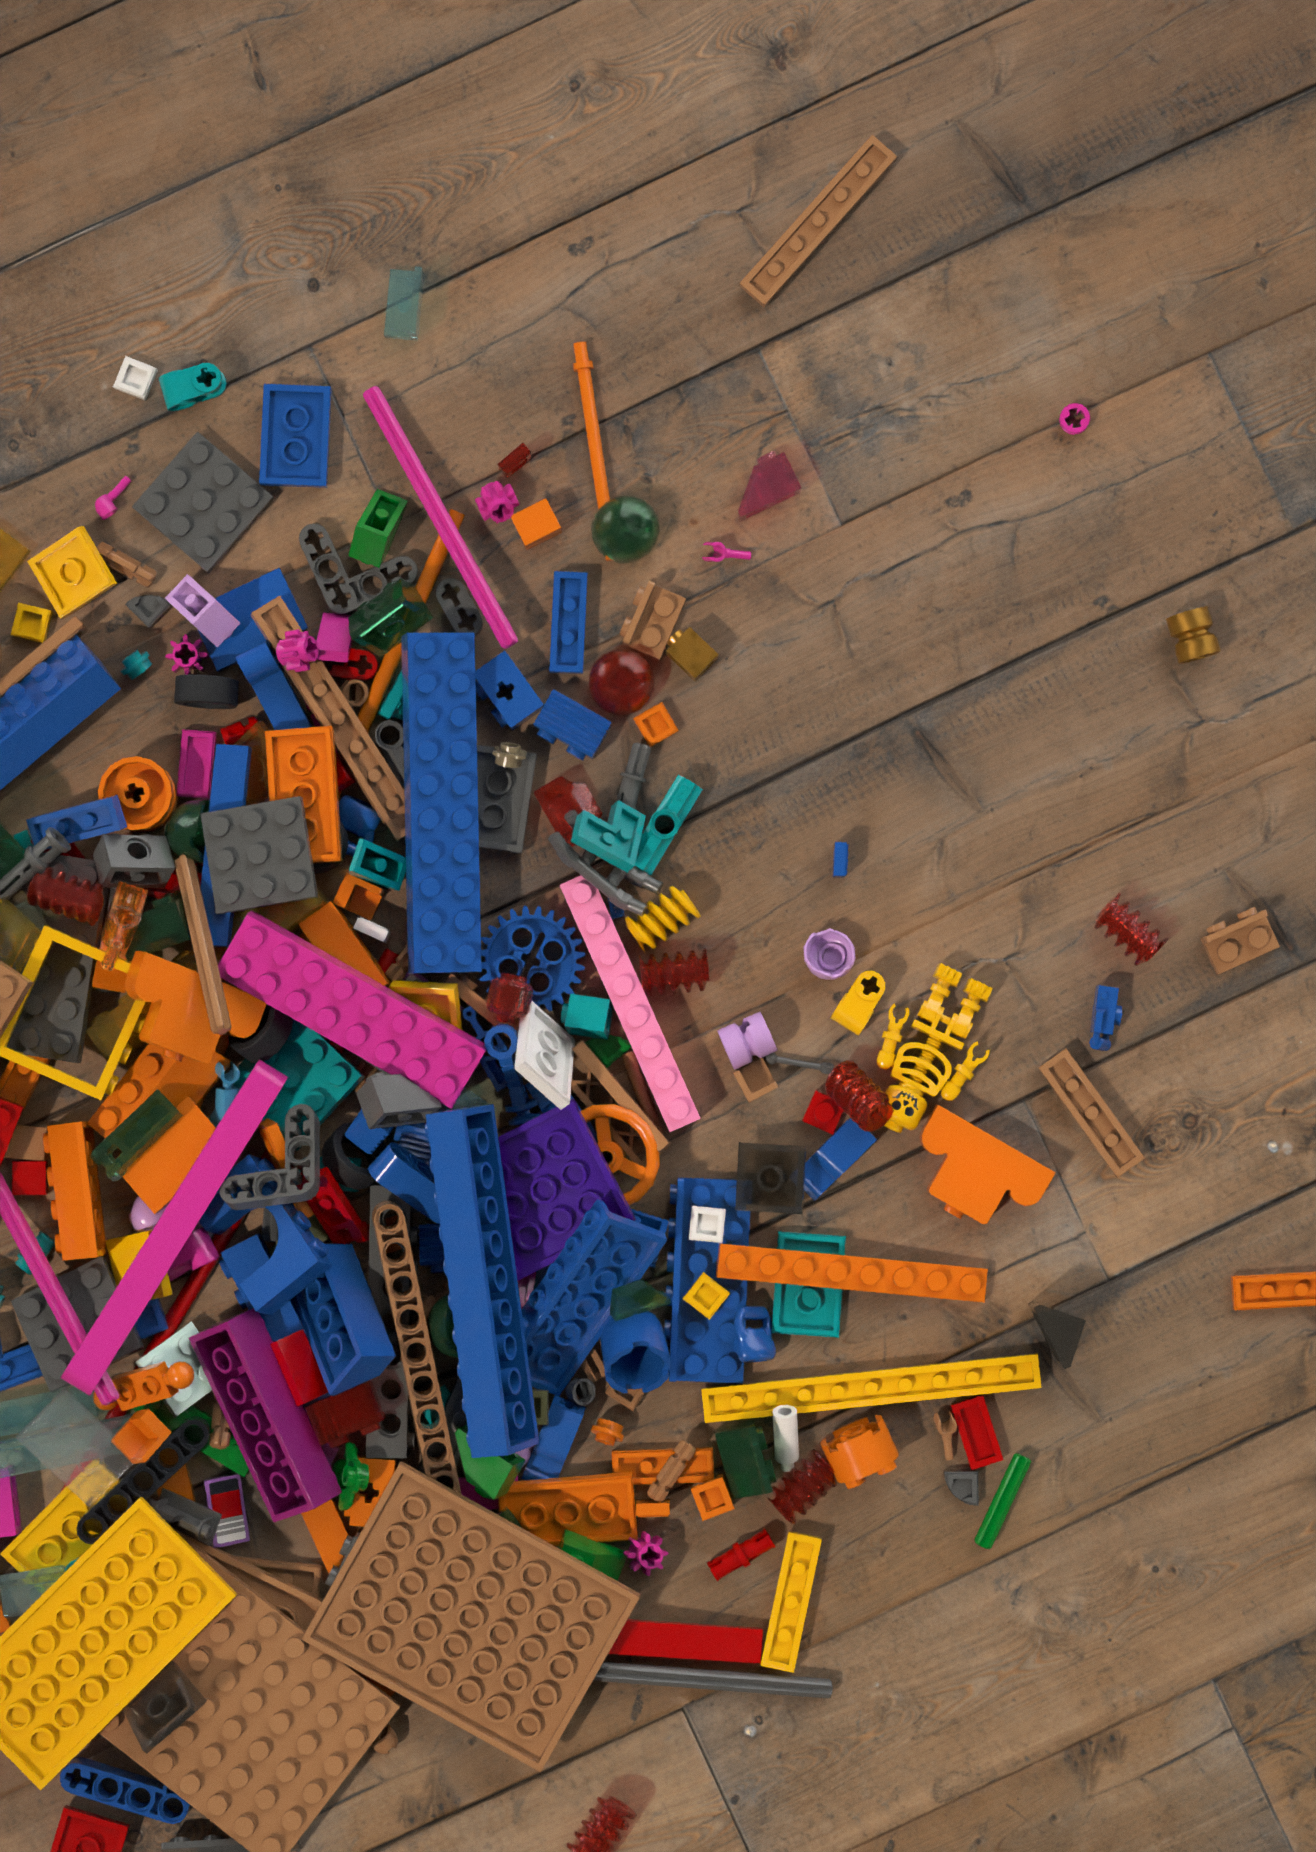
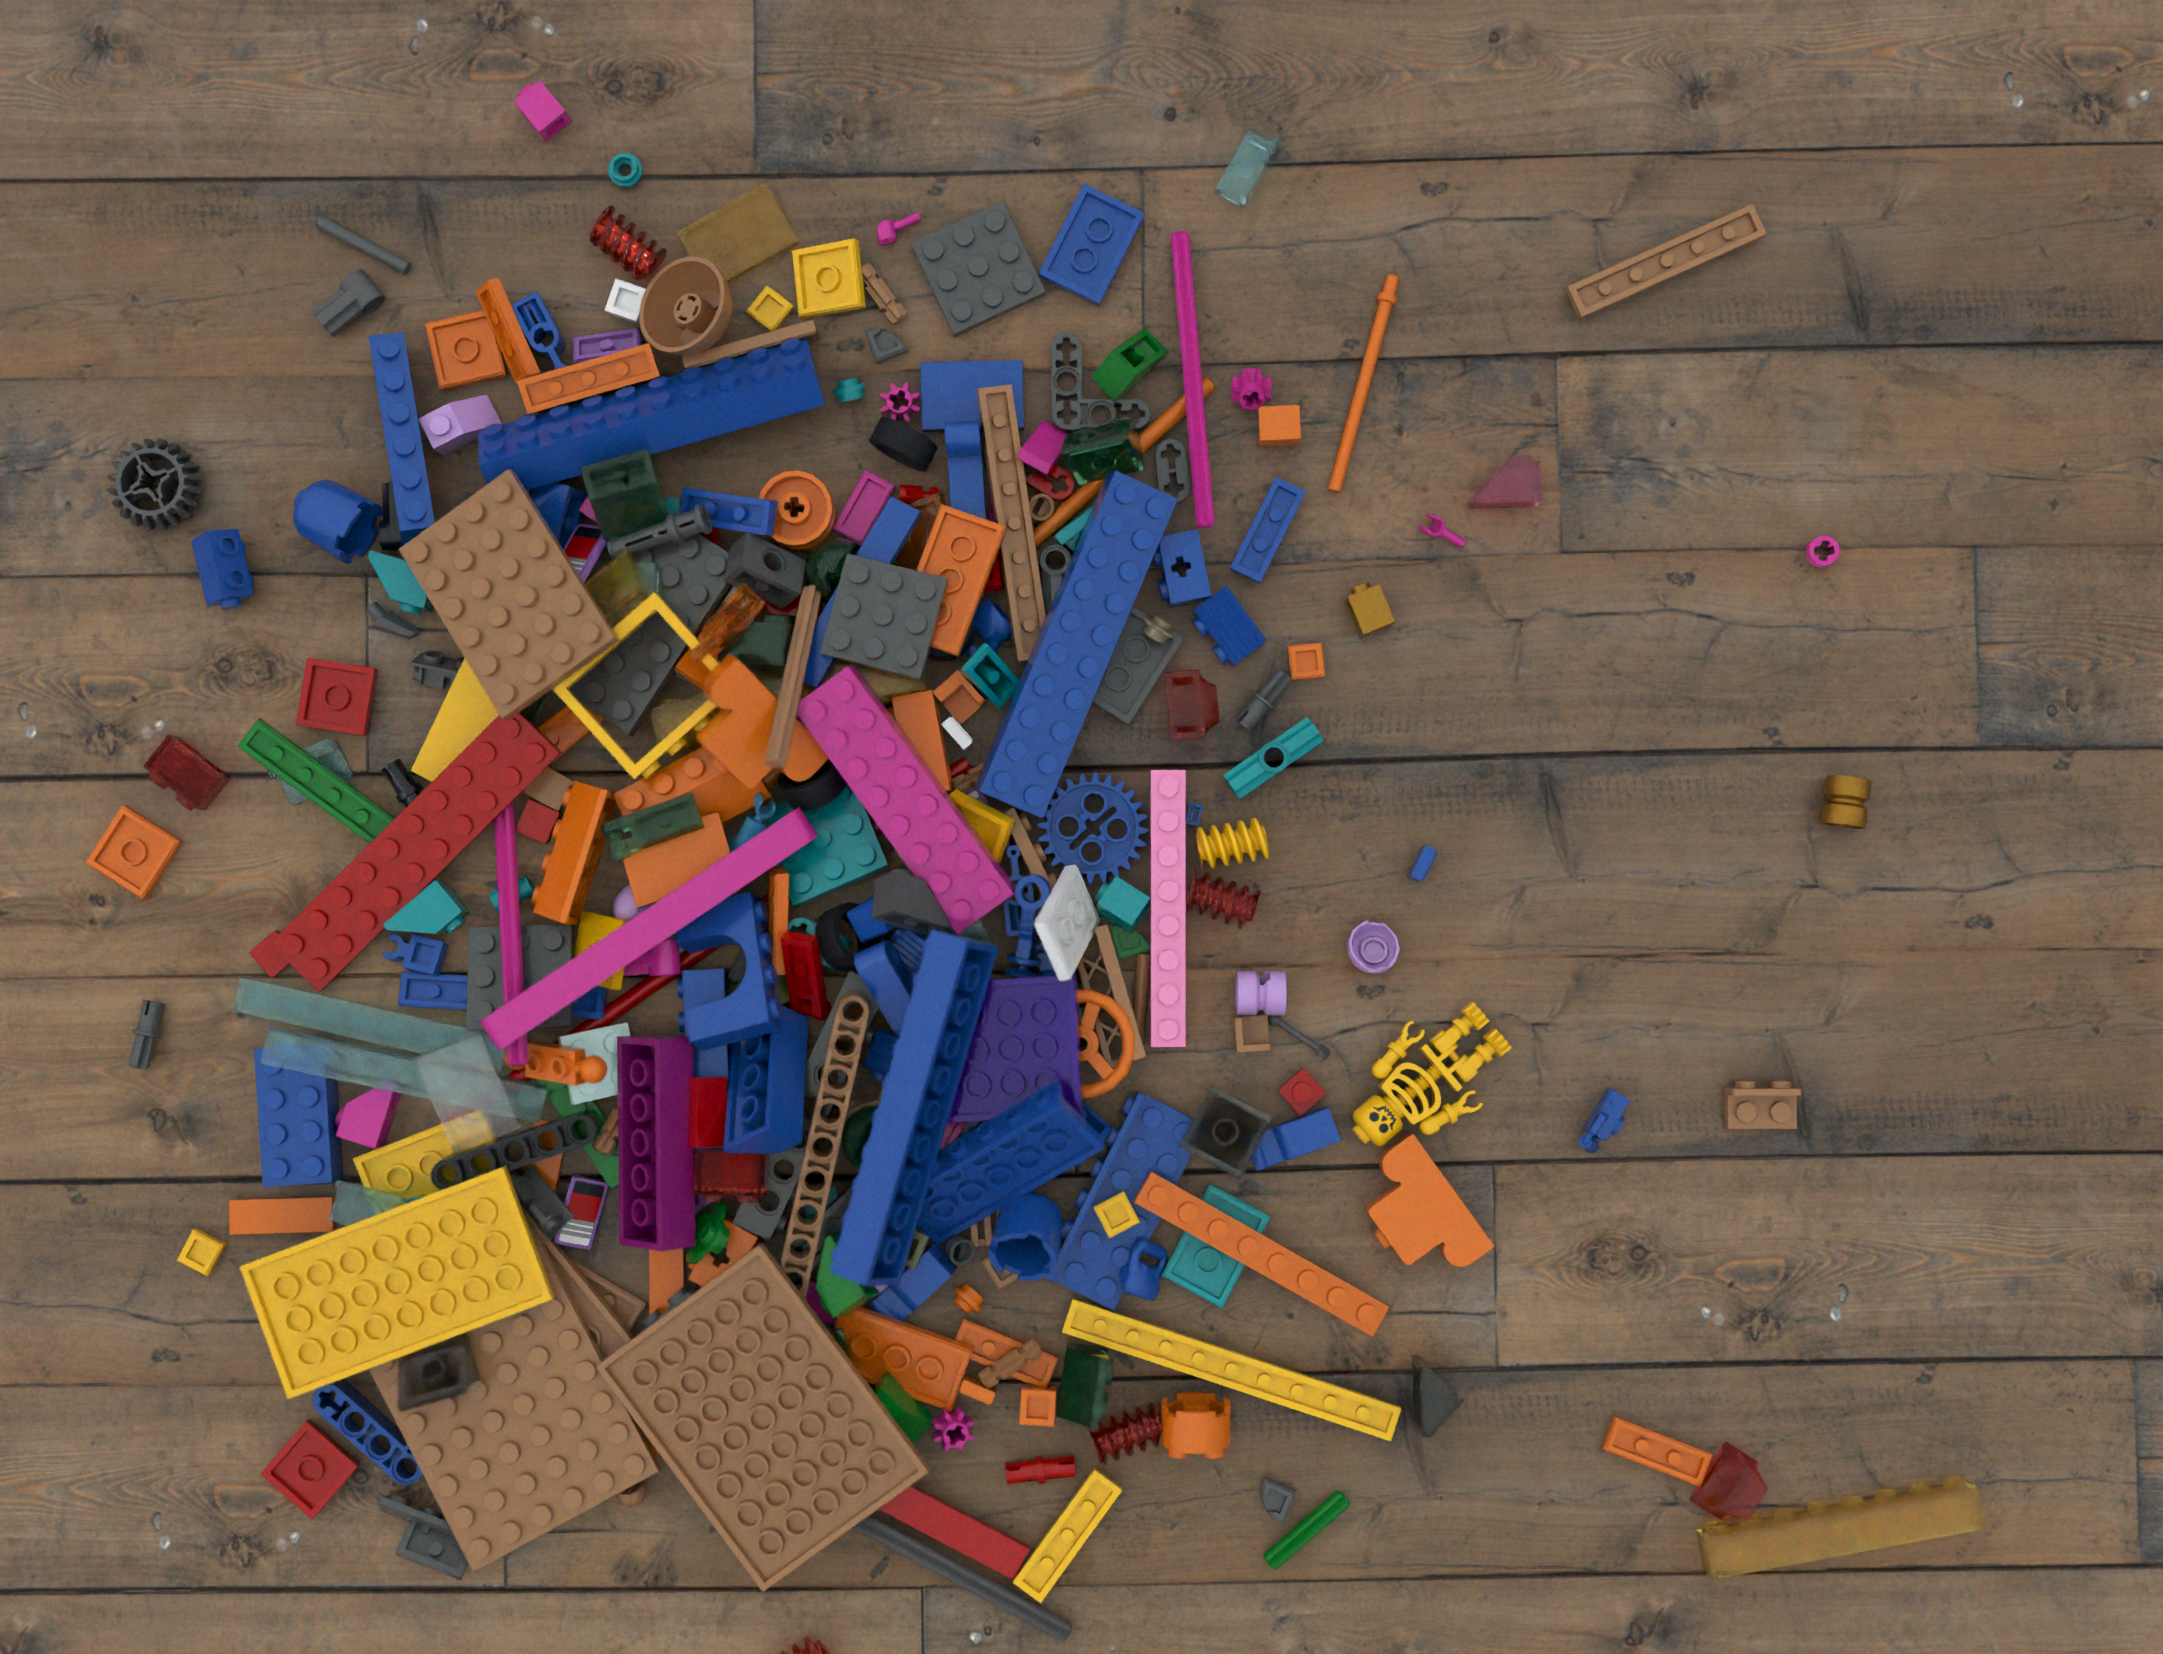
camera: 20 degrees right, 0 degrees up
(66, 897) = (686, 575): clear red piece -> none
(135, 378) = (967, 126): white tile -> none
(141, 1436) = (531, 1109): orange panel -> none
(187, 386) = (1012, 155): teal piece -> none
(202, 610) = (933, 367): lavender slope -> none
(286, 1178) = (774, 929): dark grey beam -> none
(297, 650) = (1005, 442): dark pink gear -> none
(509, 997) = (1058, 854): clear red head -> none
(515, 460) = (1285, 358): clear red tile -> none
(606, 886) = (1216, 779): dark grey piece -> none
(613, 840) = (1219, 750): teal plate -> none
(621, 682) = (1292, 607): clear red cylinder -> none
(625, 529) = (1359, 467): clear green cylinder -> none
(635, 1299) = (1049, 1189): tile -> none
(652, 621) = (1346, 563): medium nougat bracket -> none
(707, 1224) = (1147, 1148): white tile -> none
(785, 1436) = (1132, 1379): white cylinder -> none
(855, 1006) = (1376, 1008): yellow piece -> none
(858, 1096) = (1342, 1092): clear red piece -> none
(946, 1430) = (1283, 1439): medium nougat hand -> none
(976, 1432) = (1311, 1454): red tile -> none
(1091, 1113) = (1551, 1204): medium nougat plate -> none
(1129, 931) = (1663, 1050): clear red piece -> none

